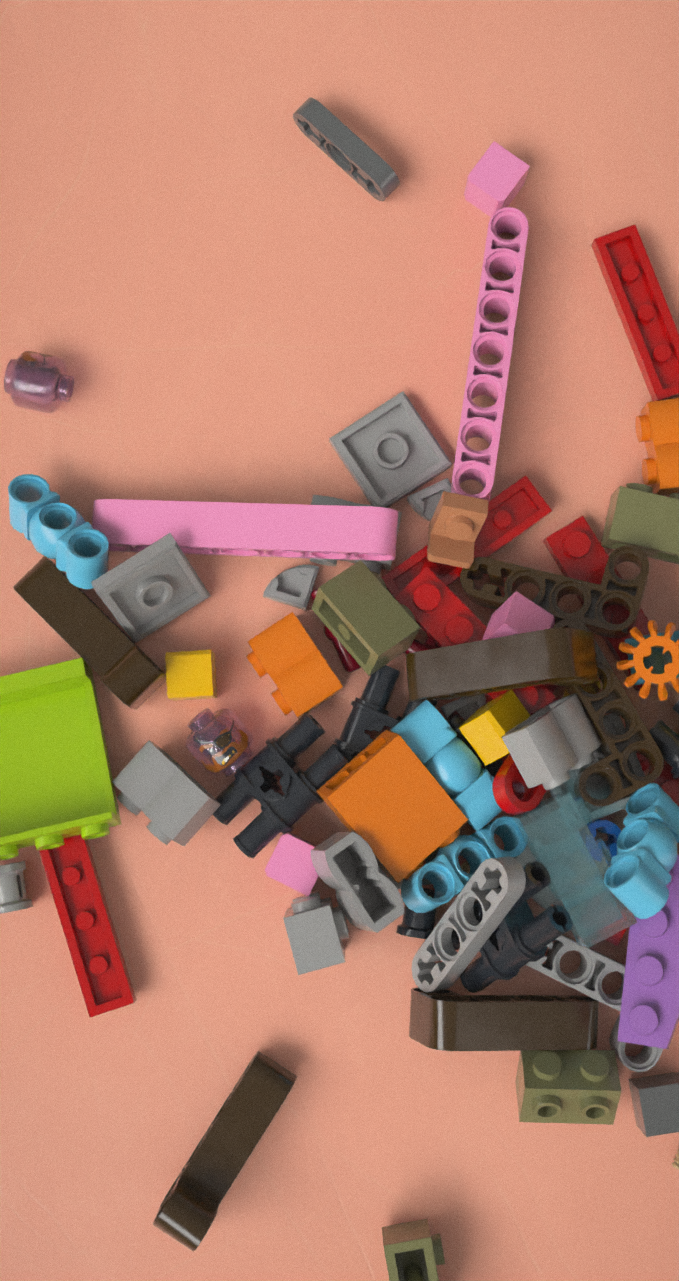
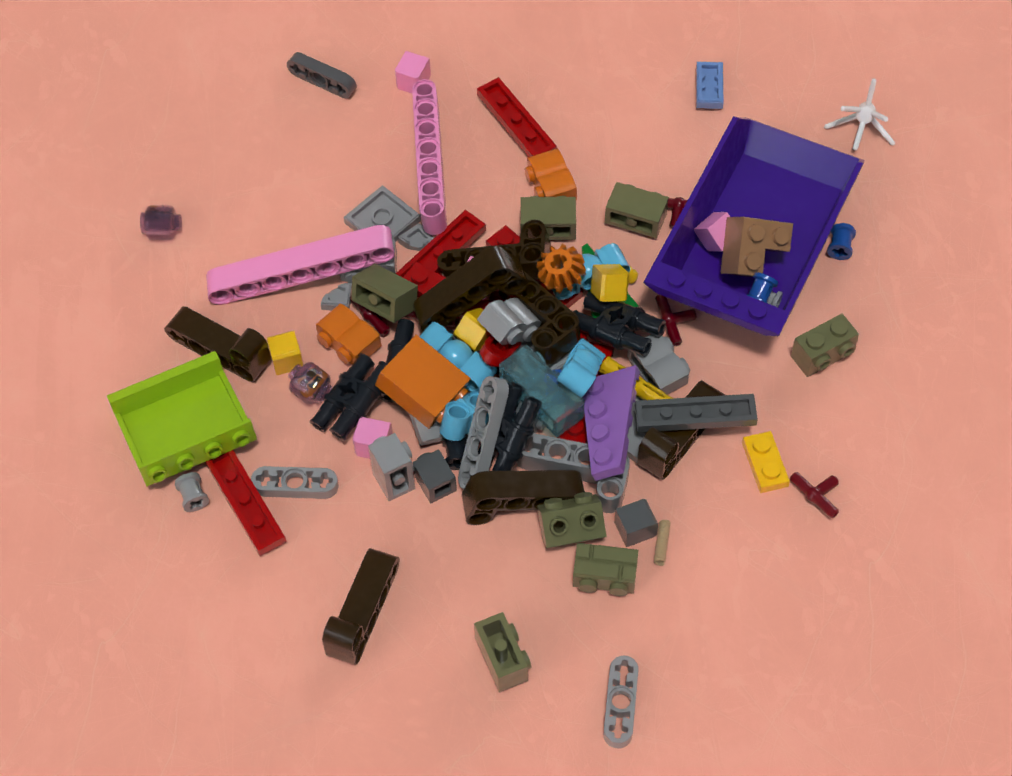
camera: 10 degrees left, 25 degrees down
(57, 530) = (188, 289): medium azure piece -> none
(137, 882) = (303, 491): none -> light grey beam
(151, 588) = (251, 304): light grey tile -> none
(165, 795) = (282, 416): light grey brick -> none
(362, 892) = (409, 421): light grey brick -> none
(377, 955) = (434, 476): none -> dark grey brick
(455, 529) = (428, 235): nougat bracket -> none
(598, 1171) = (605, 569): none -> olive brick

